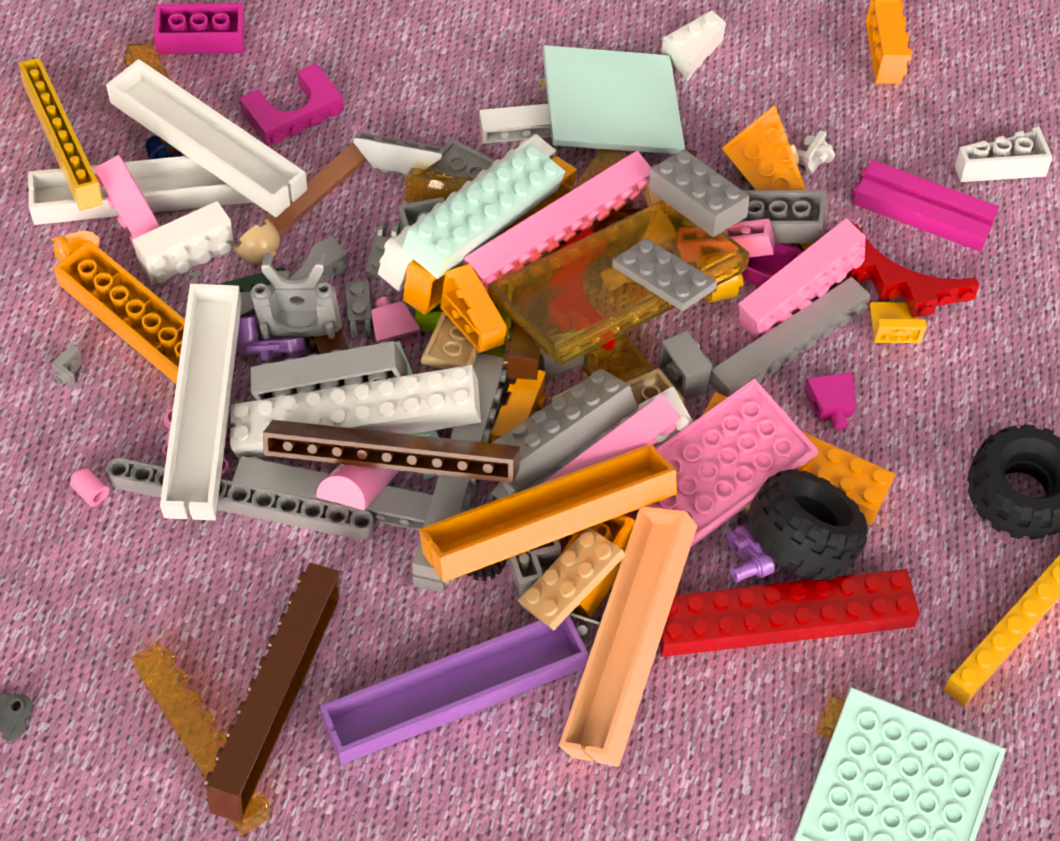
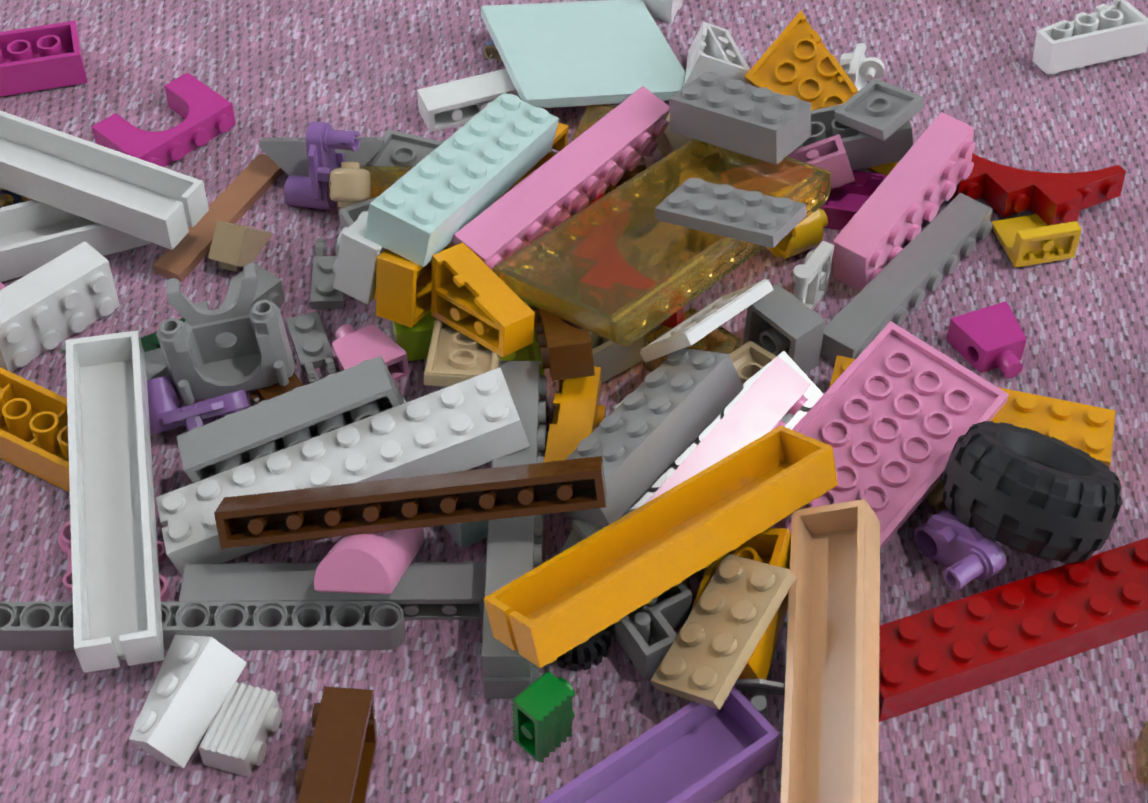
camera: 10 degrees left, 10 degrees down
(224, 547) = (185, 697): none -> white wedge
(255, 574) = (240, 730): none -> white brick
(258, 242) = (148, 290): tan cylinder -> none
(324, 215) = (236, 244): none -> tan slope
(396, 160) = (322, 158): none -> medium lavender piece
(410, 187) = (349, 184): none -> tan head
(444, 608) = (543, 715): none -> green brick
(626, 352) = (706, 320): none -> white tile
(706, 128) = (716, 53): none -> white wedge
(718, 328) = (813, 275): none -> white plate
(803, 204) = (879, 109): none -> light grey plate
(924, 205) = (1018, 103): dark pink brick -> none

